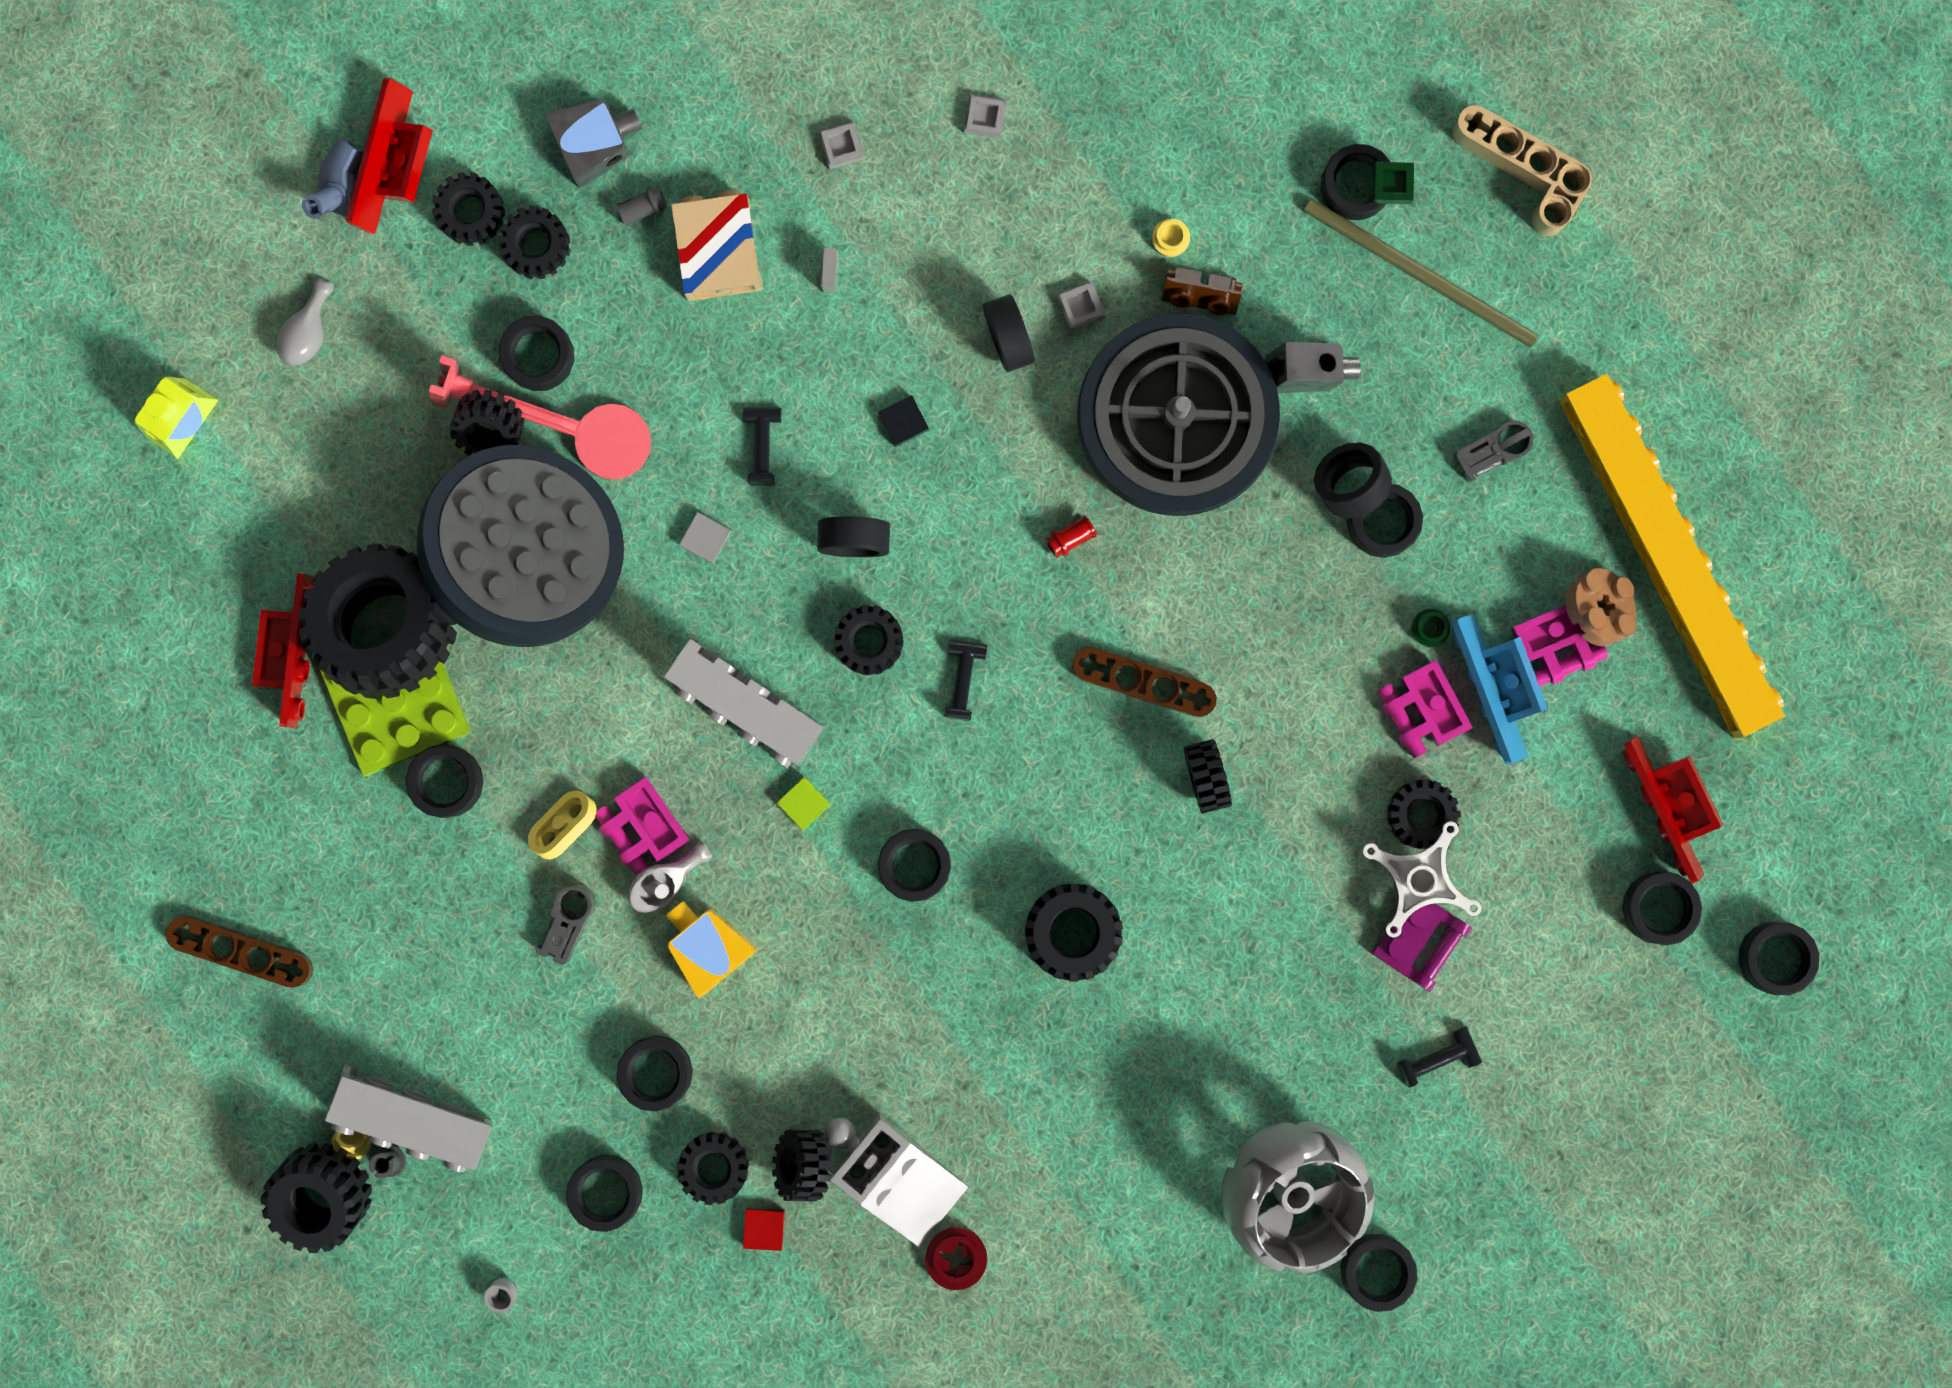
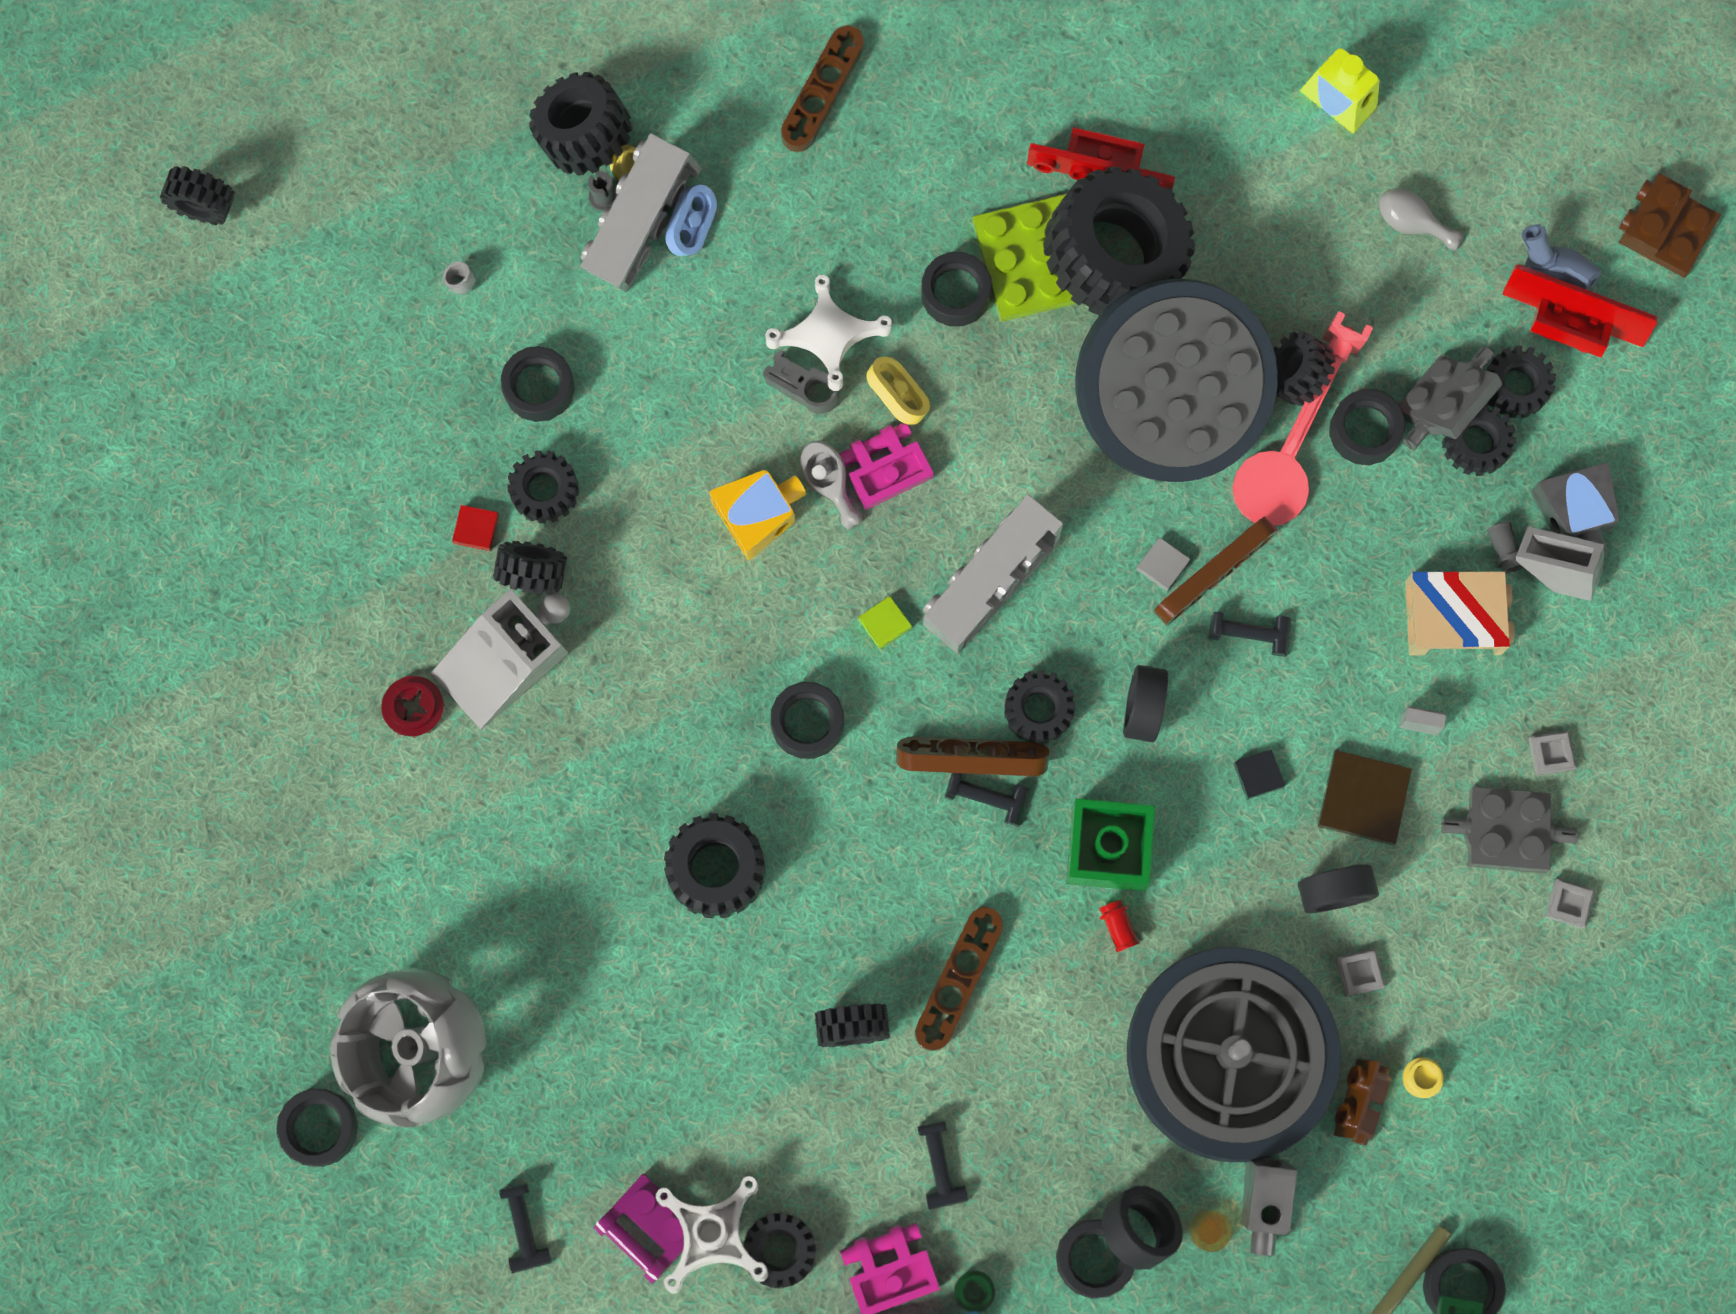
camera: 95 degrees right, 10 degrees down
(280, 75) = (1668, 225): none -> reddish brown plate
(407, 1066) = (690, 222): none -> light blue plate
(496, 275) = (1448, 397): none -> dark grey plate
(510, 904) = (828, 332): none -> white piece
(625, 1068) = (636, 417): black tyre -> none
(652, 150) = (1562, 562): none -> light grey slope
(706, 485) = (1215, 570): none -> reddish brown beam
(911, 318) = (1364, 797): none -> dark brown tile
(923, 179) = (1509, 830): none -> dark grey plate
(930, 754) = (972, 756): none -> reddish brown beam
(997, 554) = (1110, 845): none -> green brick
(1342, 418) = (1210, 1231): none -> clear orange tile
(1345, 667) = (945, 1194): none -> black piece

